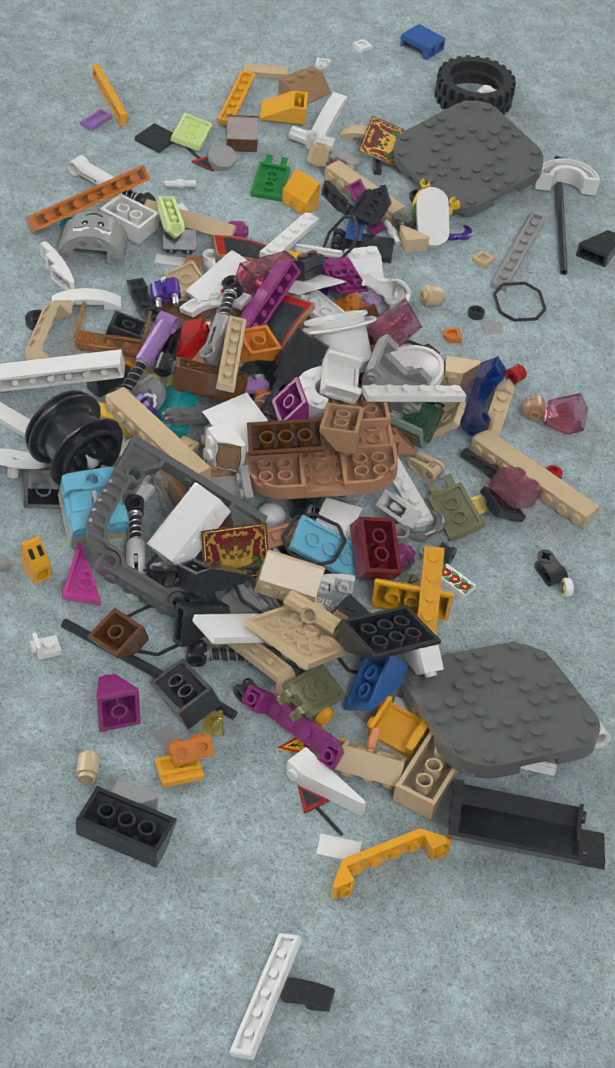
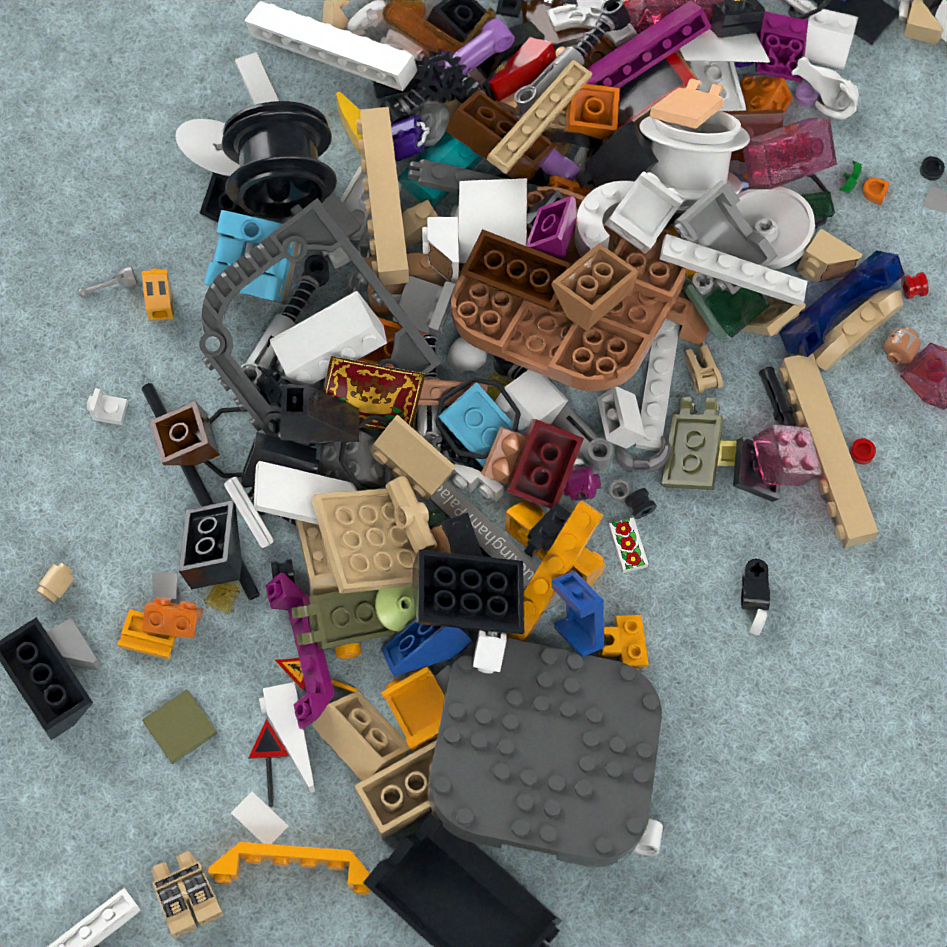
camera: 35 degrees right, 20 degrees up
(65, 346) = (368, 16): none -> white tile
(80, 582) = (186, 350): dark pink wing -> none
(116, 703) = (128, 517): magenta slope -> none
(140, 363) = (445, 84): none -> black gear
(197, 661) = (247, 510): none -> white axle
(242, 816) = (179, 726): none -> olive tile
(323, 313) = (689, 105): none -> light nougat tile
(326, 914) = (181, 886): none -> tan hips
(338, 675) = (389, 607): none -> yellowish green dish
(346, 554) = (503, 455): none -> nougat tile
(372, 738) = (377, 709): orange tile -> none
(410, 579) = (547, 530): none -> black hinge
(432, 295) = (886, 120): tan head -> none
(434, 332) = (852, 179): none -> green piece
(463, 621) = (584, 614): none -> blue panel
(494, 632) = (626, 641): none -> light orange plate

